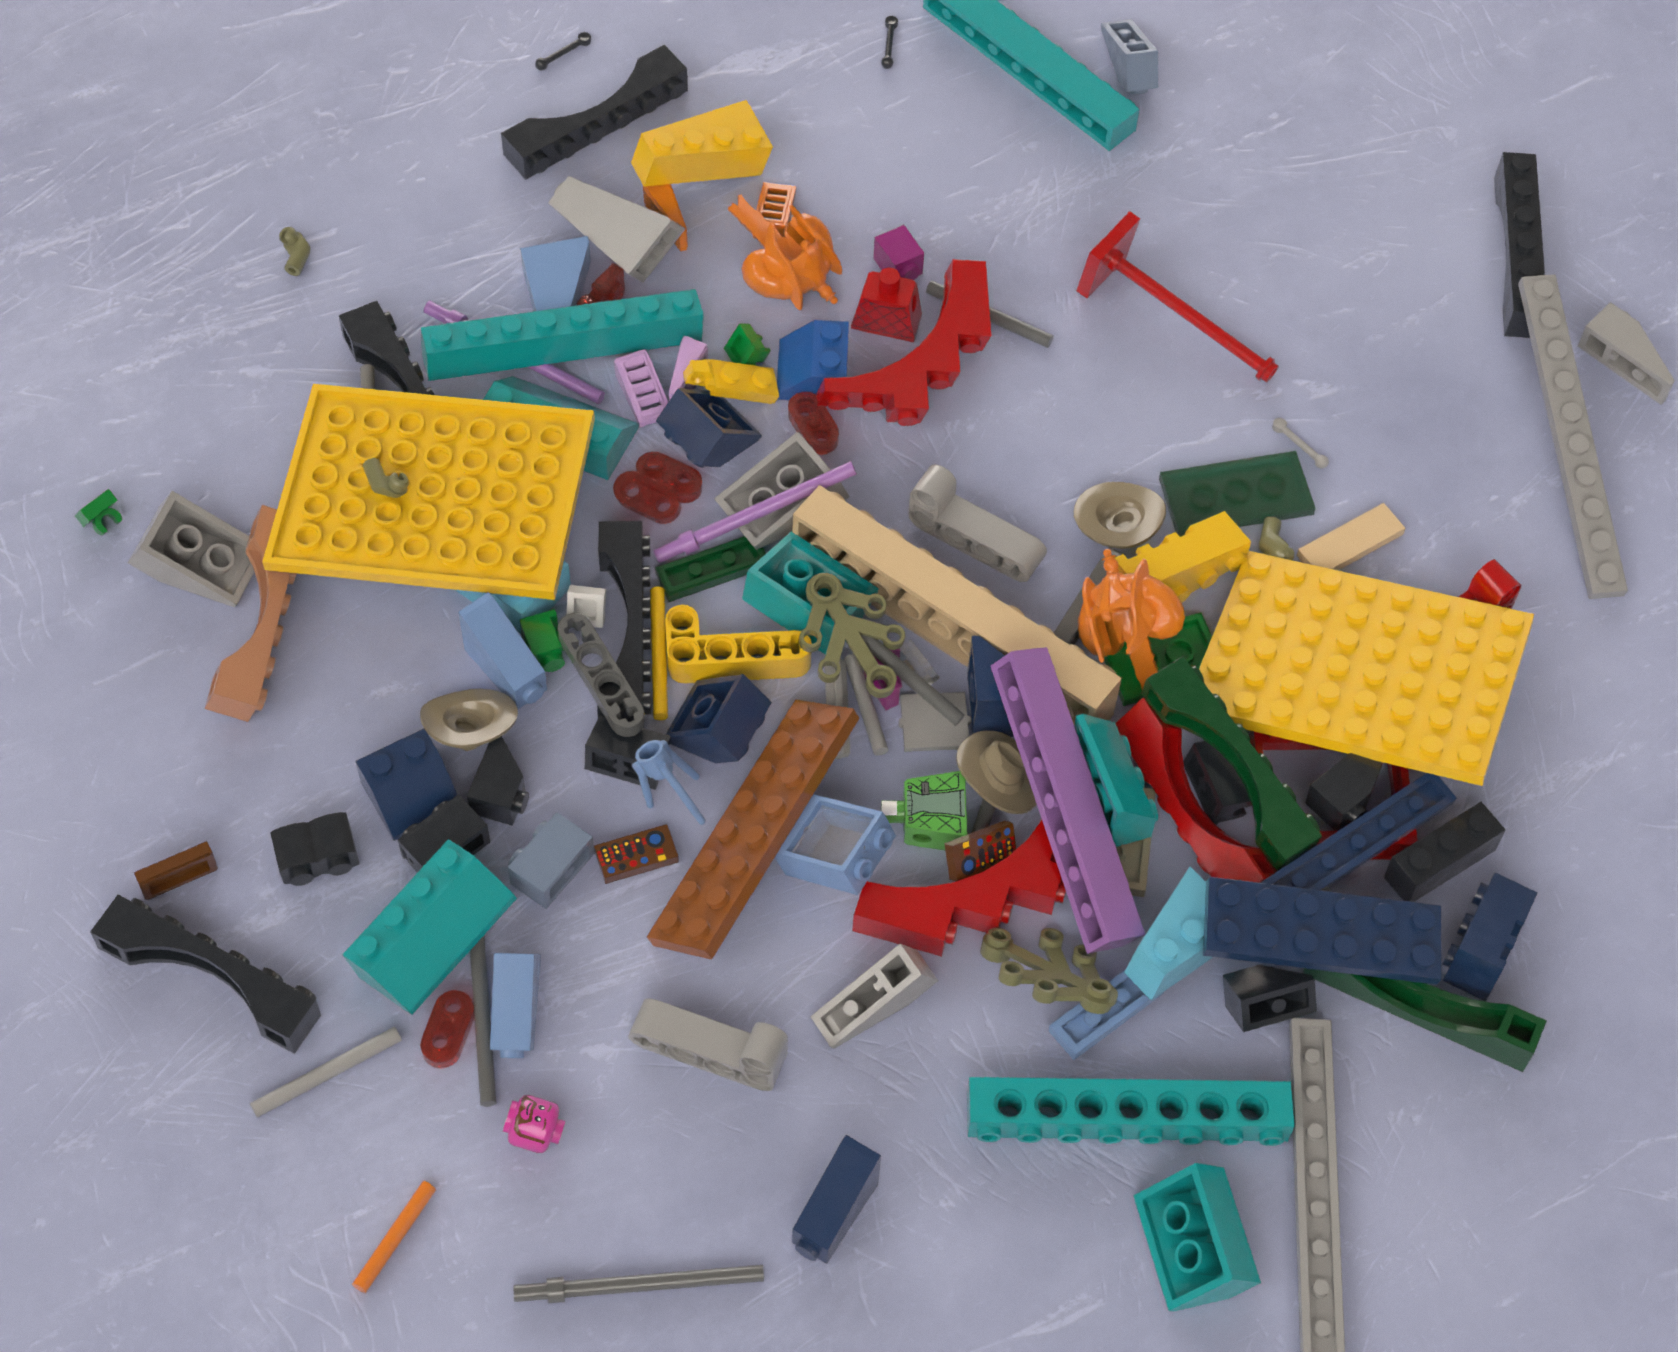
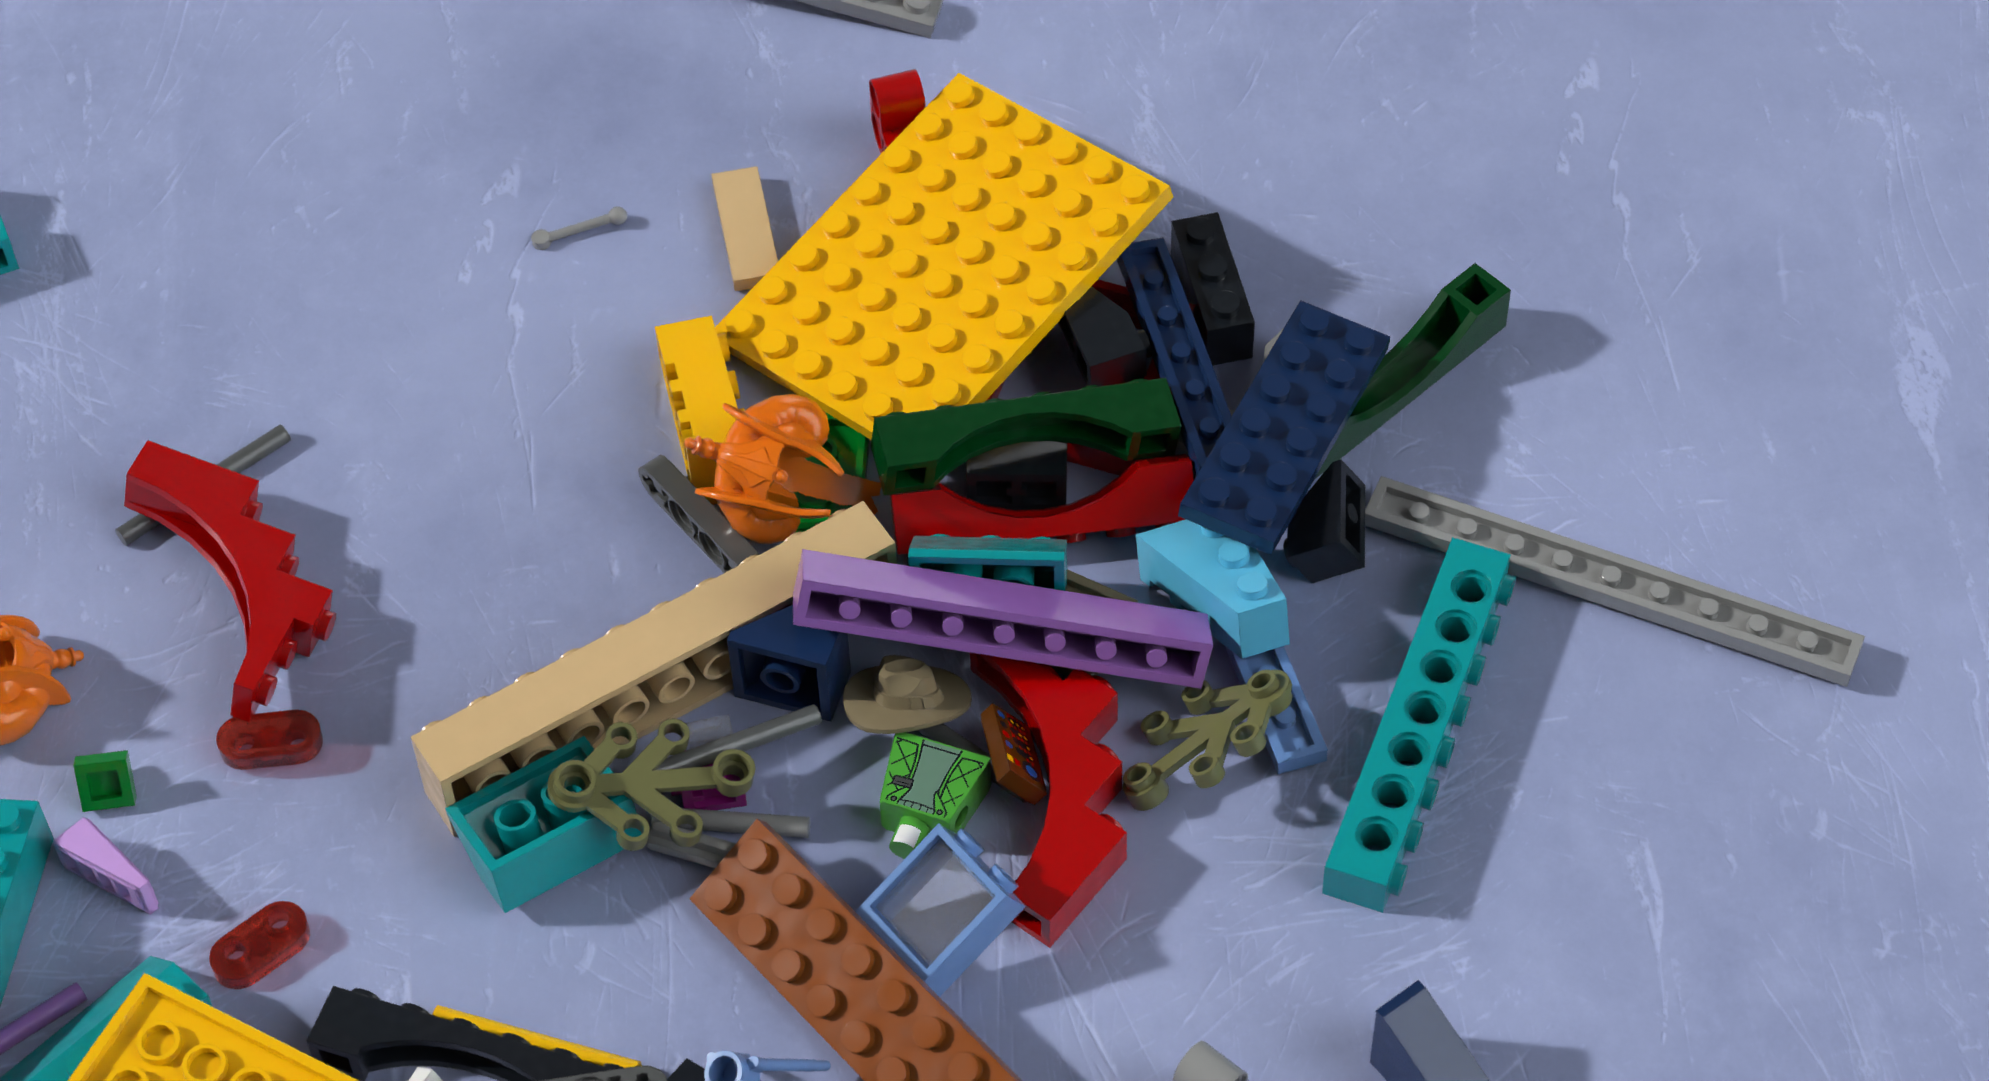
camera: 65 degrees left, 5 degrees down
(636, 368) = (81, 913): lavender slope -> none
(649, 498) = (283, 978): clear red plate -> none
(691, 541) = (384, 944): medium lavender bar -> none
(706, 427) = (211, 869): dark blue slope -> none
(707, 568) = (432, 935): dark green tile -> none
(719, 718) = (678, 996): dark blue slope -> none
(733, 380) = (156, 806): yellow hinge -> none
(737, 647) = (585, 941): yellow beam -> none
(779, 471) = (369, 806): light grey slope -> none
(811, 355) = (172, 704): blue slope -> none
(875, 995) = (1164, 945): light grey slope -> none
(888, 306) = (136, 588): red torso -> none
(899, 251) = (58, 550): magenta brick -> none
(927, 728) = (796, 763): light grey piece -> none
(972, 529) = (534, 610): light grey beam -> none
(1111, 256) = (209, 312): red tile -> none
(1119, 514) = (598, 439): dark tan hat -> none
(1196, 1237) = (1606, 711): teal slope -> none
(1242, 488) = (613, 316): clear green tile -> none
(1270, 541) = (715, 302): olive arm -> none
(1488, 936) = (1318, 268): dark blue wedge -> none

